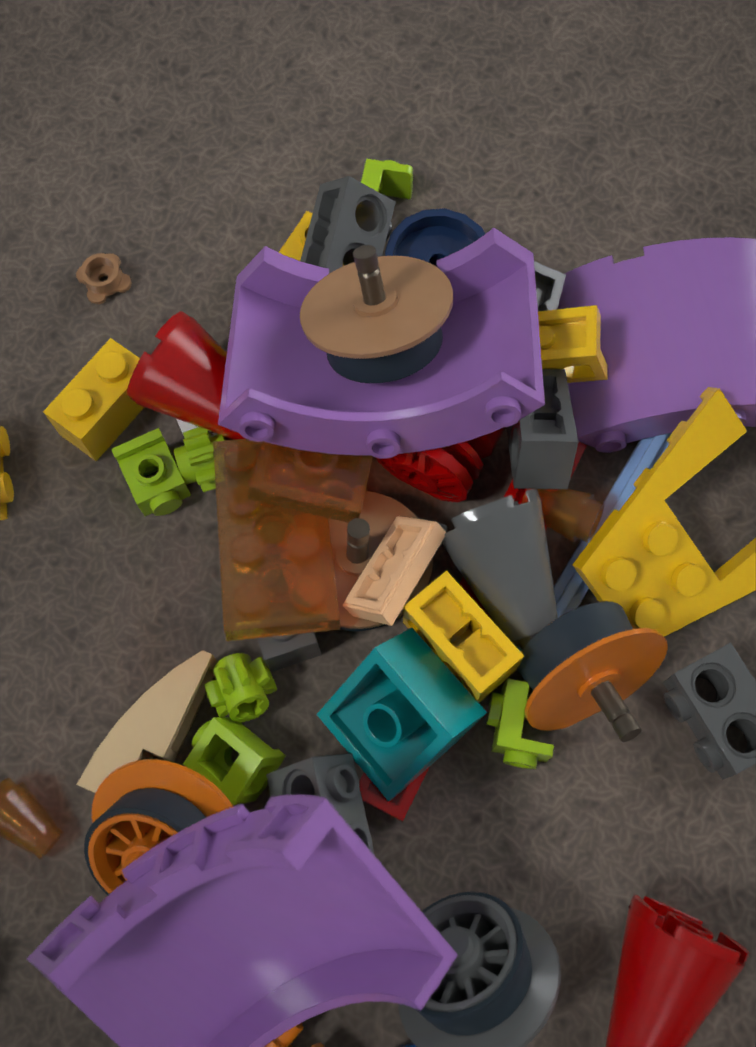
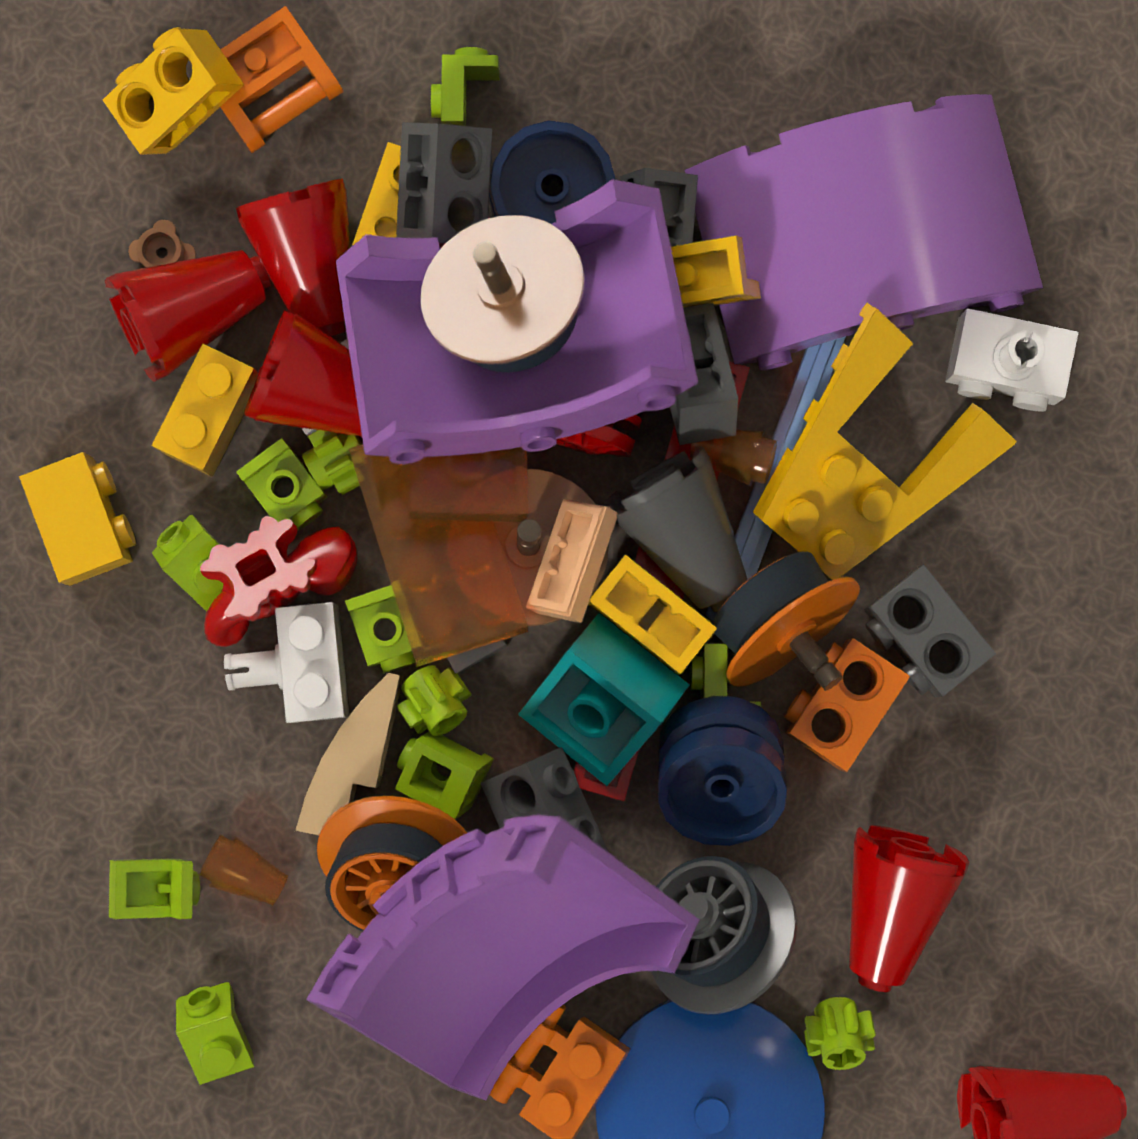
camera: 15 degrees left, 15 degrees up
(61, 528) = (181, 553): none -> lime bracket
(103, 306) = (185, 305): none -> red cone
(113, 550) = (264, 577): none -> red animal
(130, 629) = (304, 664): none -> white brick
(142, 153) = (178, 102): none -> yellow brick
(198, 593) = (366, 613): none -> lime brick
(208, 267) = (298, 244): none -> red cone
(219, 154) = (264, 60): none -> orange plate
(505, 807) = (721, 771): none -> dark blue wheel
(645, 776) = (857, 713): none -> orange brick

